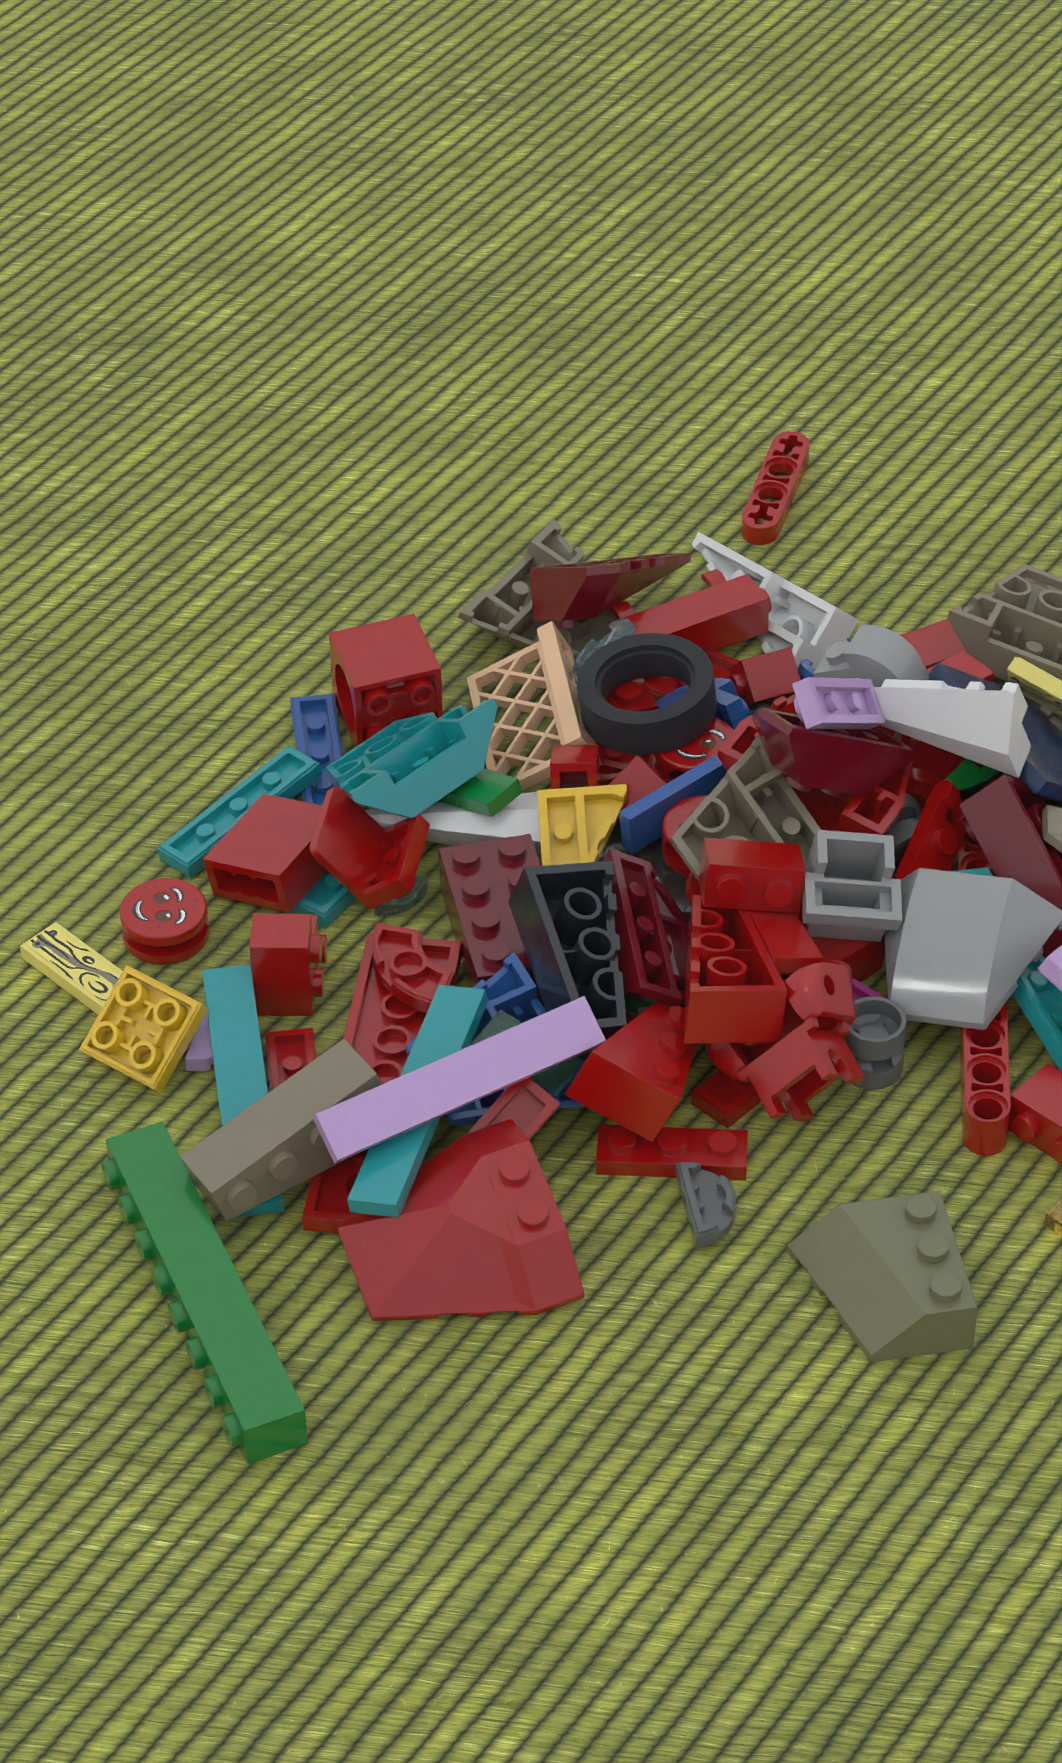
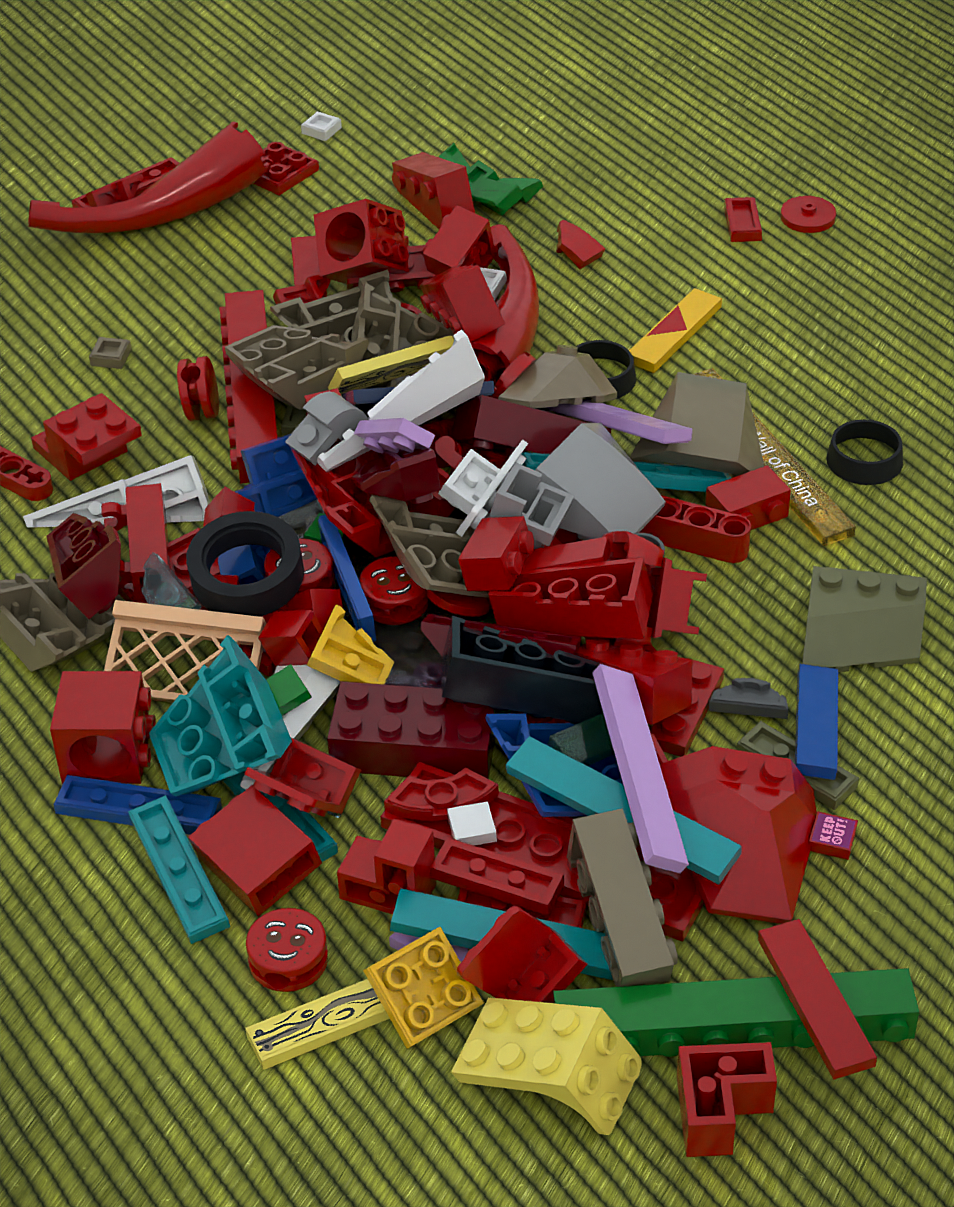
camera: 70 degrees left, 0 degrees up
(71, 1155) = (555, 1052): none -> light yellow bracket
(79, 1281) = (716, 1086): none -> red brick
(188, 1075) = (521, 960): none -> red bracket
(221, 1330) = (817, 999): none -> red tile
(312, 1024) = (497, 876): none -> red plate
(376, 1002) = (472, 824): none -> white tile
(519, 1327) = (833, 835): none -> tile
(622, 1274) = (769, 741): none -> olive tile
(691, 1268) = (817, 721): none -> blue tile
(838, 525) = (86, 436): none -> red bracket
(902, 820) = (475, 485): none -> white bracket
(968, 570) = (198, 388): none -> red head
(1025, 503) = (110, 353): none -> dark tan tile

